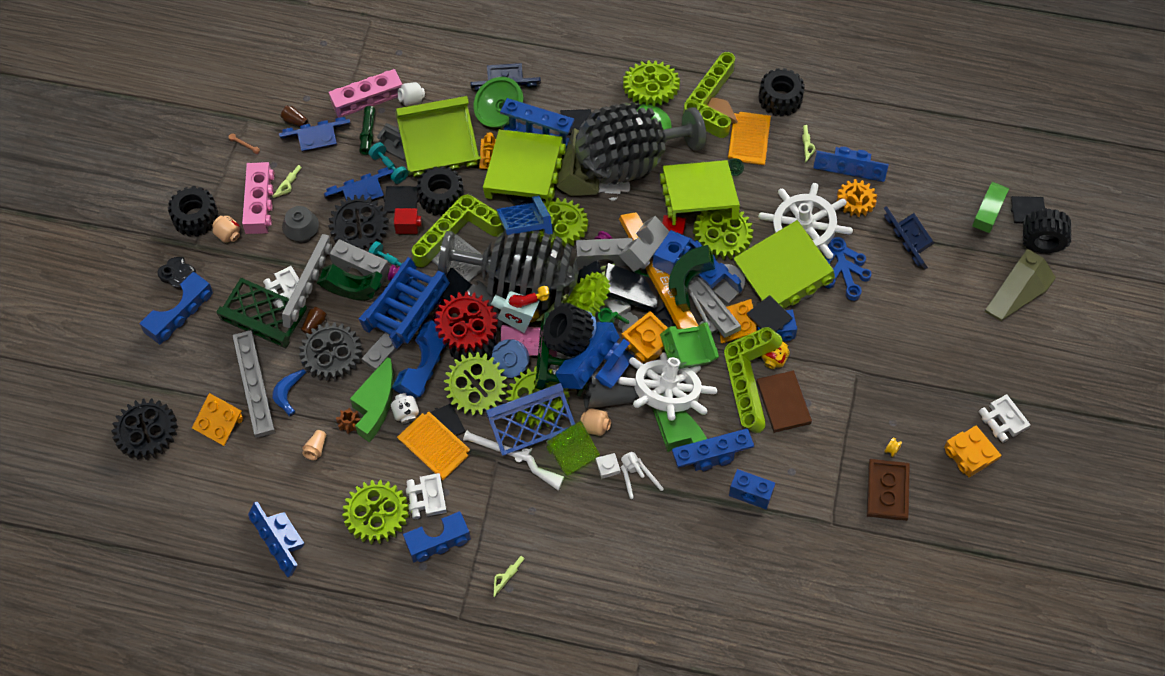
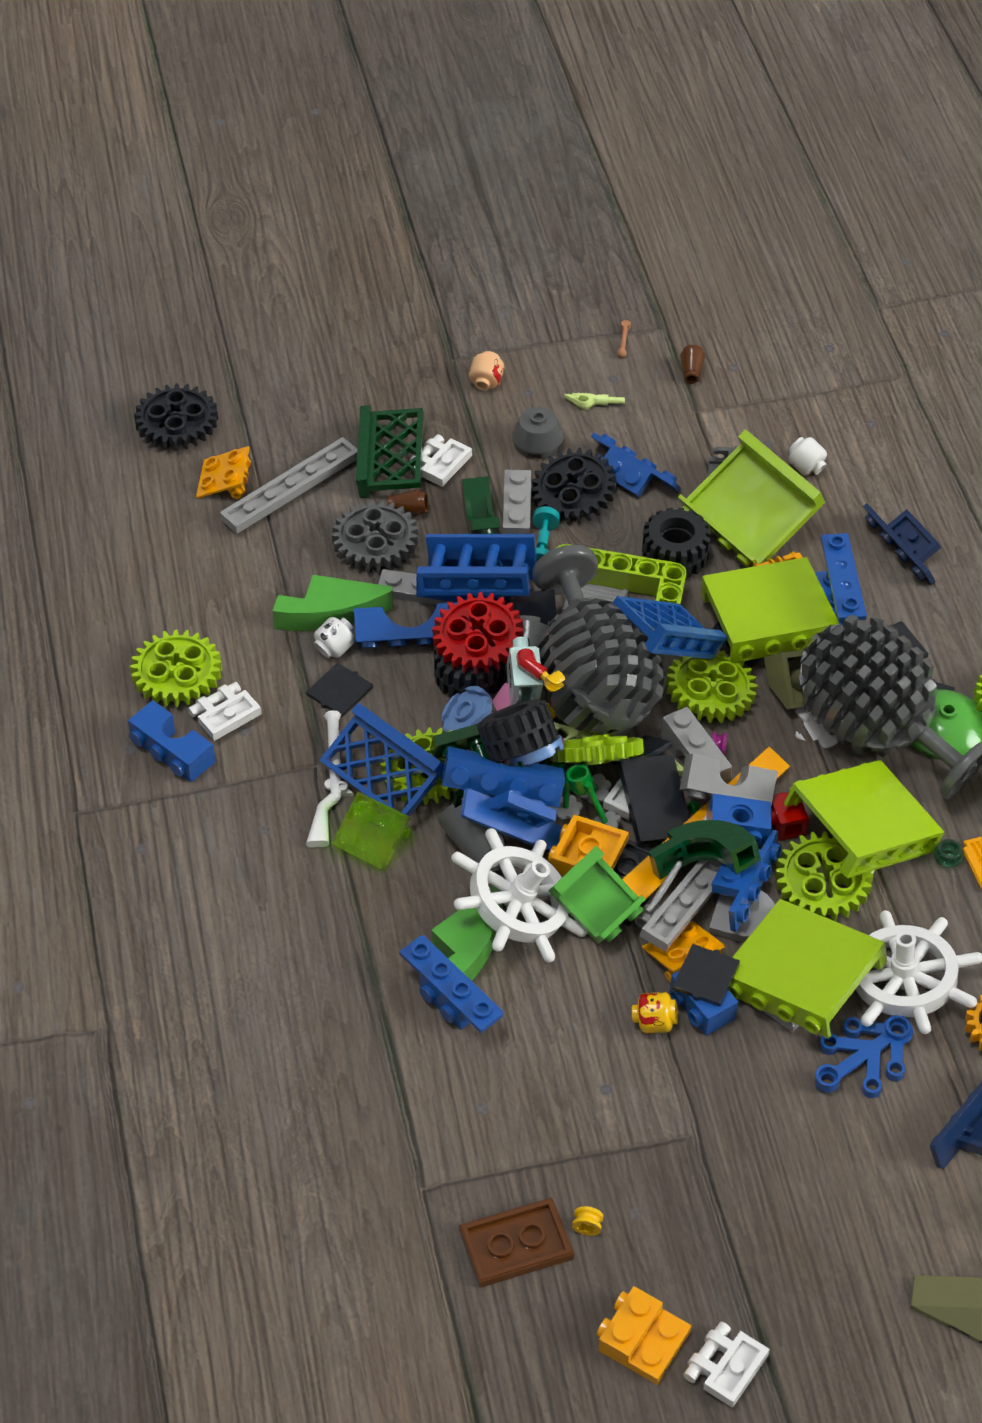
camera: 65 degrees right, 10 degrees down
(162, 324) = (378, 381): blue arch -> none
(177, 271) = (404, 356): black plate -> none
(193, 199) = (490, 327): black tyre -> none
(257, 185) = (549, 379): bright pink brick -> none
(278, 535) = (102, 594): blue bracket -> none
(282, 388) = (297, 514): blue piece -> none
(306, 281) = (448, 464): light grey plate -> none
(314, 446) = (235, 574): light nougat cone -> none
(316, 136) = (677, 394): blue bracket -> none
(348, 420) = (287, 586): dark orange gear -> none
(365, 93) = (775, 412): bright pink brick -> none
(366, 136) = (721, 439): dark green pin -> none
(377, 151) = (695, 461): teal wheel -> none
(400, 198) = (636, 513): black piece -> none
(407, 221) = (607, 528): red brick -> none
(434, 444) = (303, 691): light orange window -> none
(489, 371) = (407, 688): lime gear -> none
(492, 97) = (869, 540): bright green dish -> none
(505, 577) = (148, 834): yellowish green hand -> none
(596, 421) = (425, 839): light nougat head -> none
(608, 465) = (371, 885): white plate -> none
(633, 464) = (384, 908): white plant -> none
(745, 377) = (590, 985): lime beam -> none
(751, 489) = (418, 1060): blue brick -> none
(783, 401) = (588, 1055): reddish brown tile -> none

